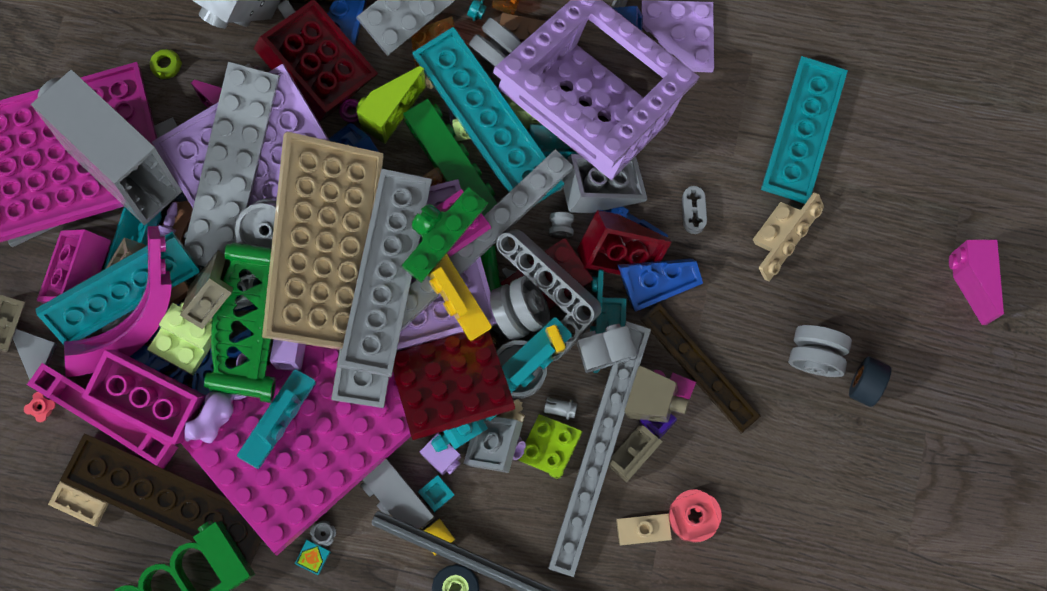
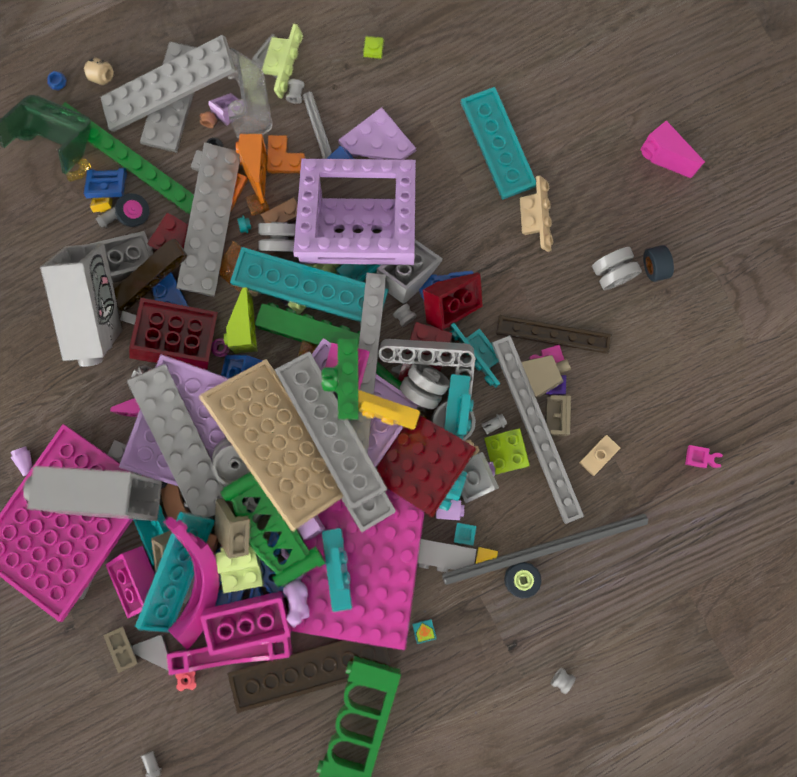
camera: 30 degrees left, 5 degrees up
(69, 61) = (22, 460): none -> lavender cone
(78, 504) = (259, 717): tan plate -> none
(169, 220) = (171, 512): lavender bar -> none
(171, 70) = (88, 410): lime piece -> none
(316, 533) = (419, 607): light grey plate -> none
(555, 339) = (464, 387): yellow tile -> none
(606, 348) = (495, 368): light grey brick -> none
(658, 280) = (488, 303): blue wing -> none
(688, 529) = (633, 422): coral plate -> none
(699, 209) = (470, 246): light grey beam -> none

